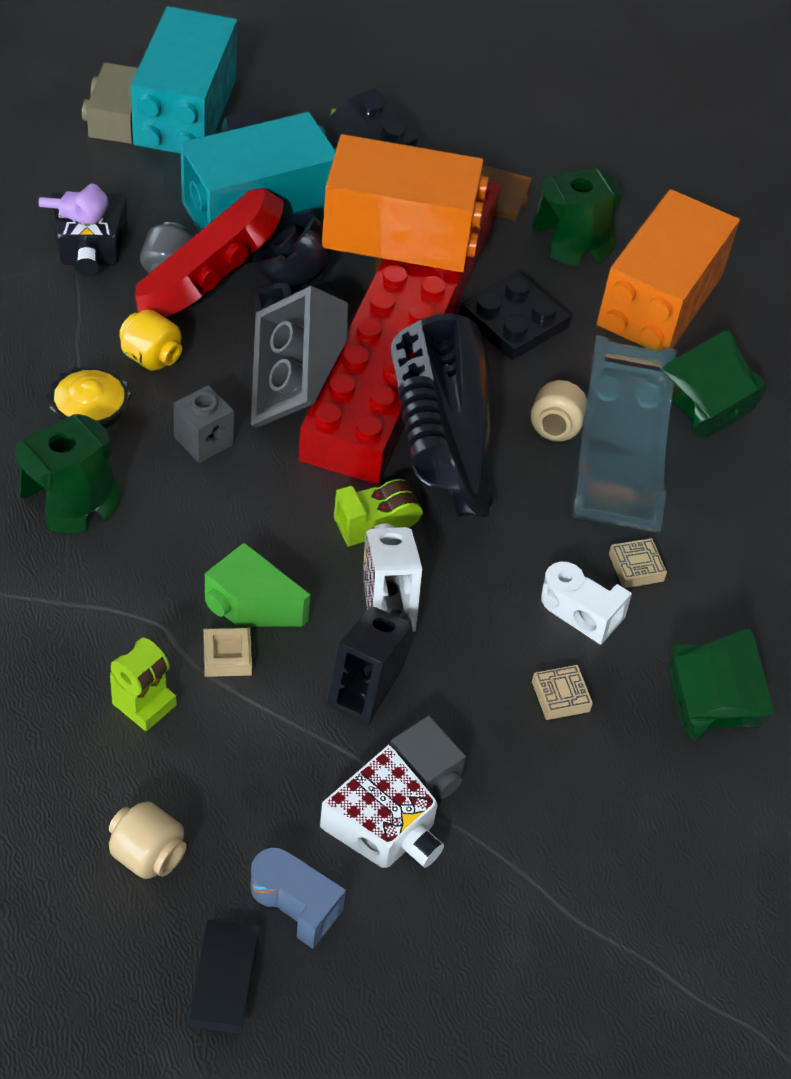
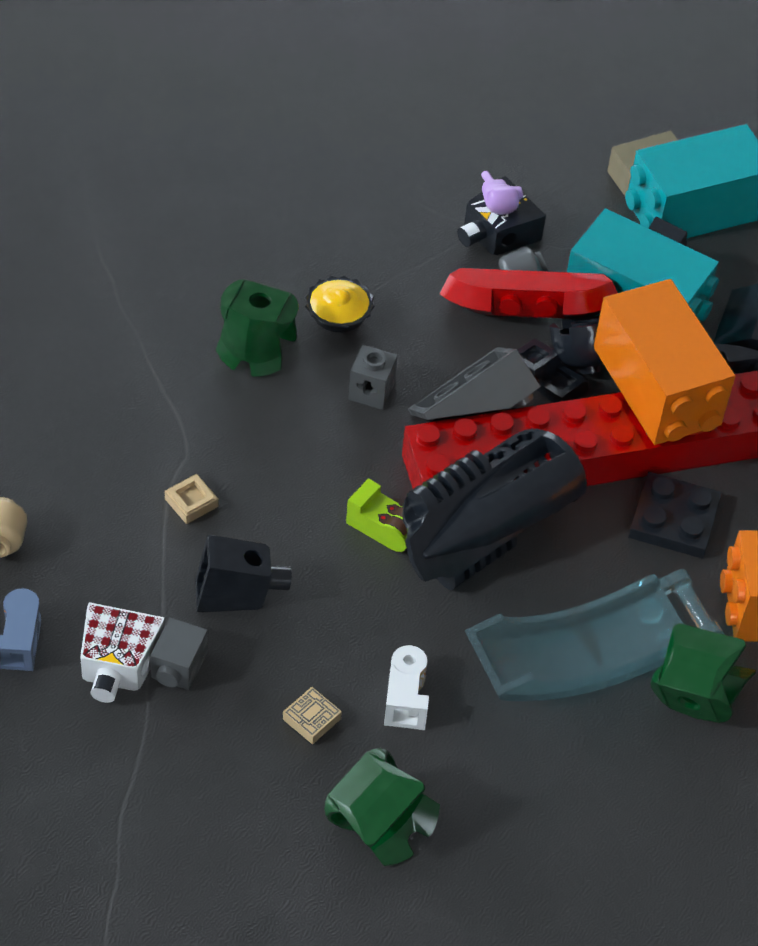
camera: 60 degrees right, 0 degrees up
(140, 684) = (115, 460): lime leg -> none
(151, 340) = (425, 306): yellow head -> none
(254, 592) = (247, 481): bright green slope -> none
(392, 557) = (321, 550): white torso -> none
(559, 410) = (585, 582): tan head -> none
(637, 563) = (480, 711): tan tile -> none

